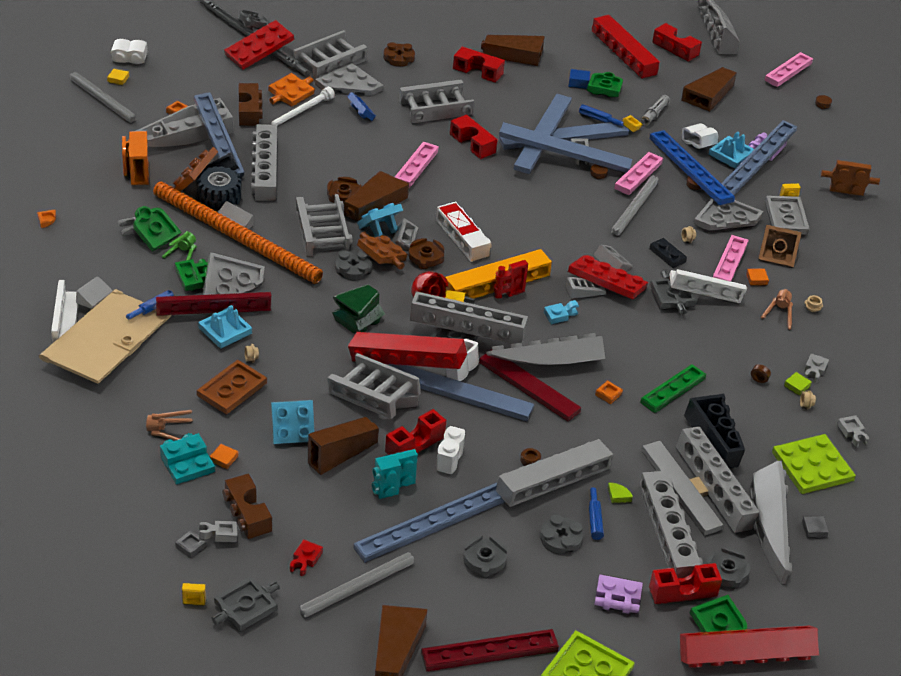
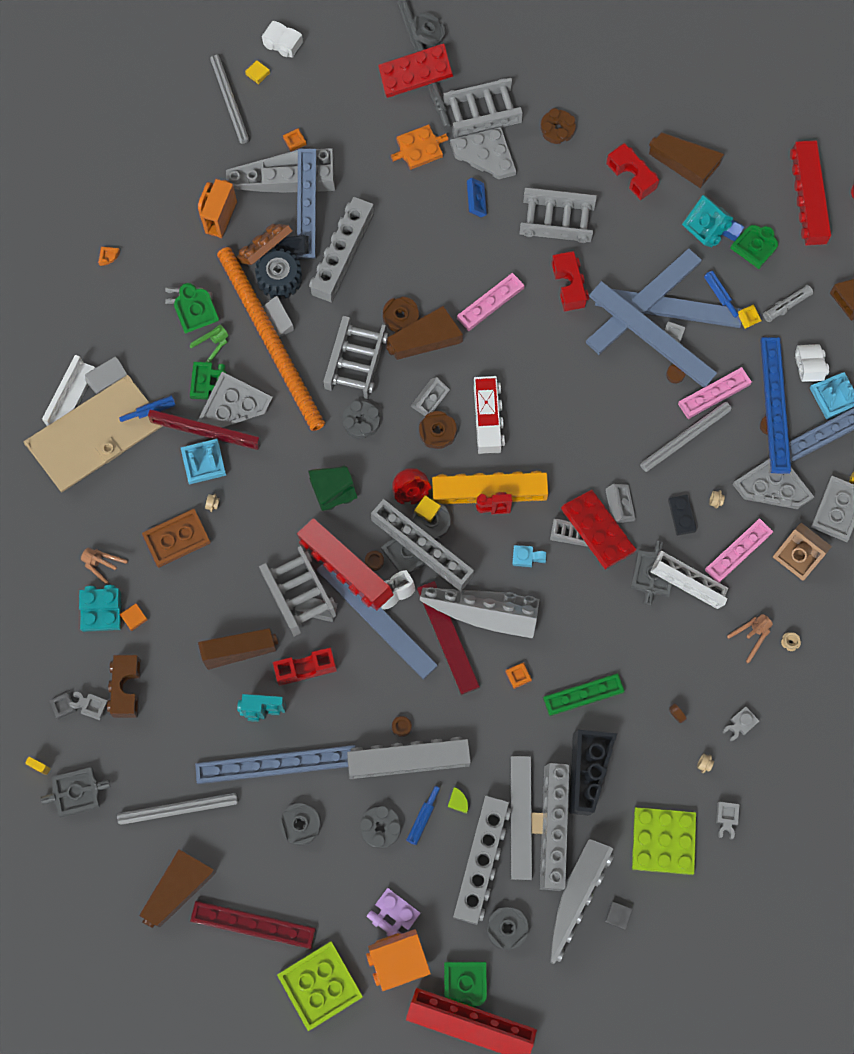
camera: 30 degrees right, 30 degrees up
(250, 104) = (361, 170): reddish brown arch -> none
(292, 421) = (204, 607): medium azure plate -> none
(305, 555) = (151, 757): red plate -> none
(325, 95) = (449, 167): white piece -> none
(376, 216) = (411, 370): medium azure plate -> none
(382, 250) = (395, 412): dark orange plate -> none
(450, 450) = (333, 689): white brick -> none
(560, 74) = (708, 222): none -> teal plate
(650, 615) = (397, 960): none -> orange brick
(700, 584) = (453, 935): red arch -> none
(757, 276) = (755, 582): orange tile -> none
(797, 383) = (710, 737): lime tile -> none

